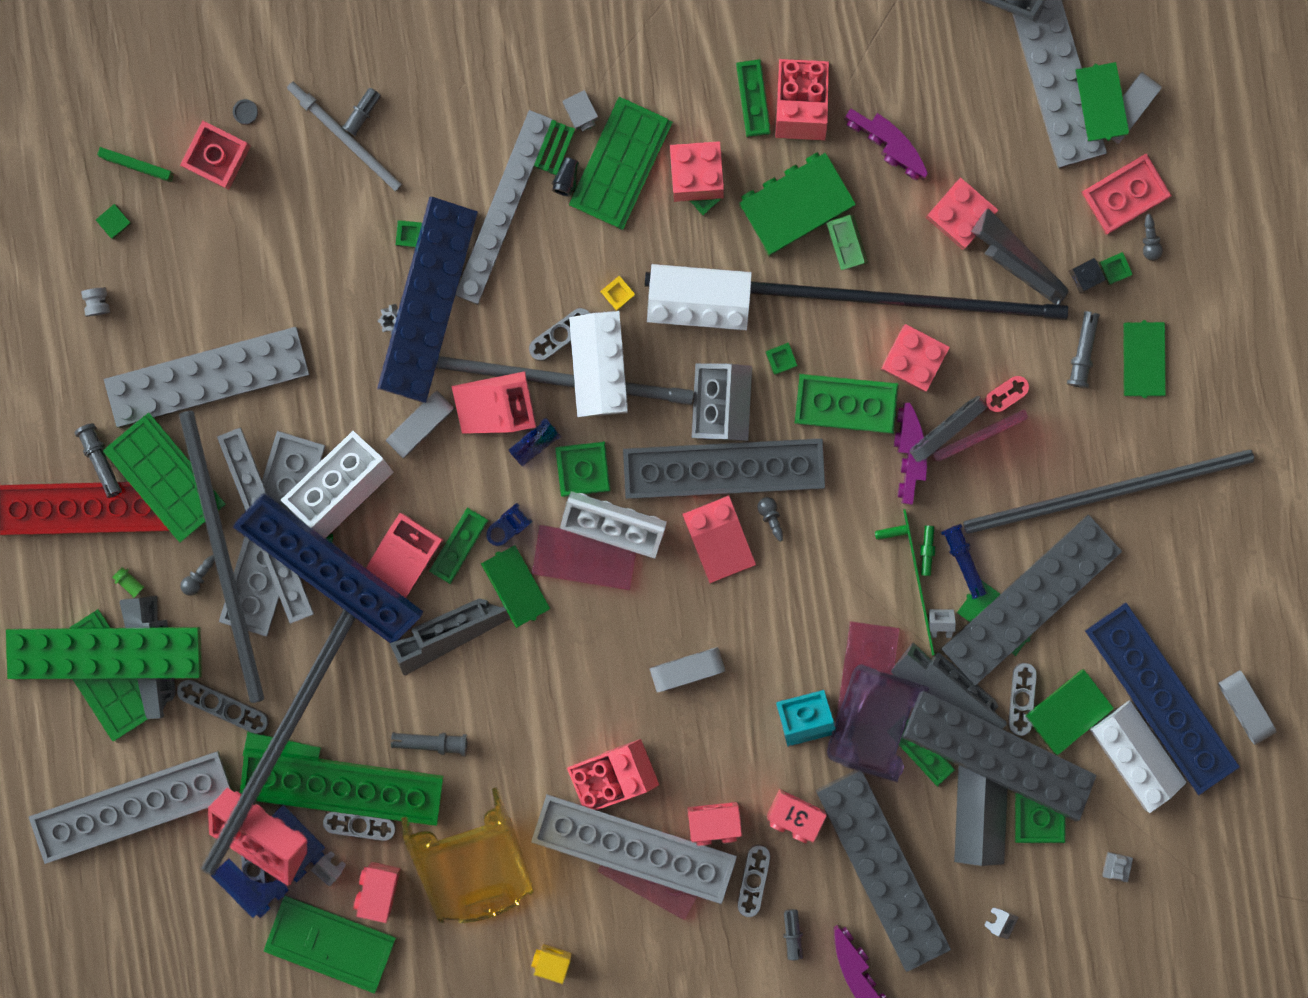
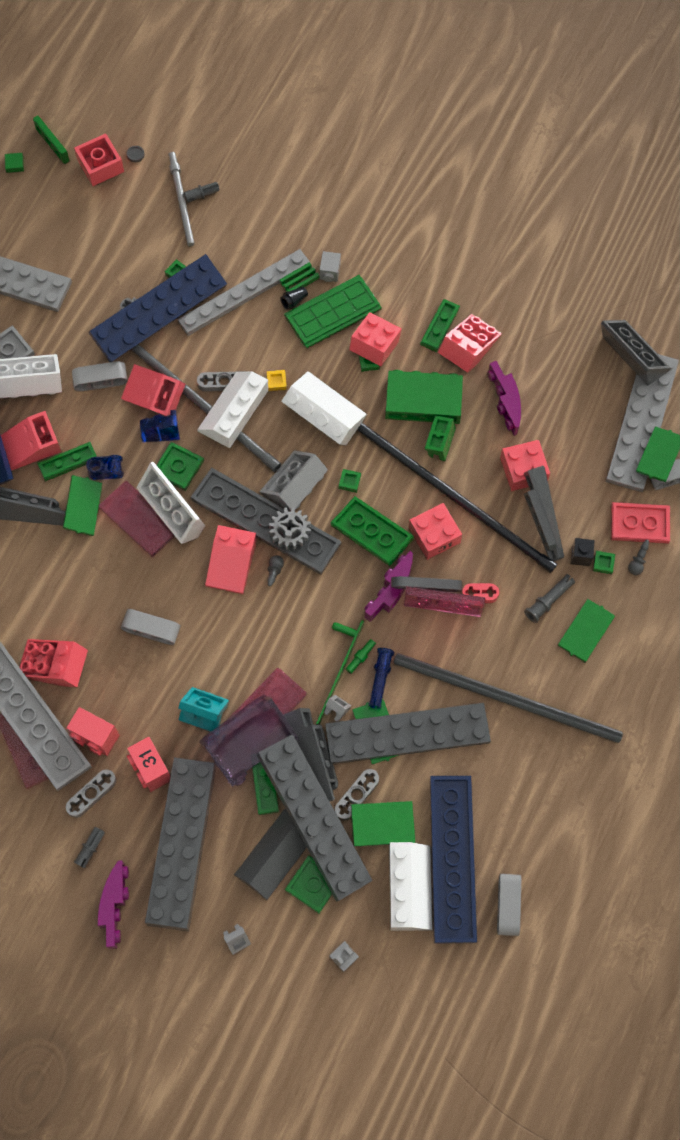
camera: 35 degrees right, 20 degrees down
(766, 476) = (283, 526): none -> light grey gear

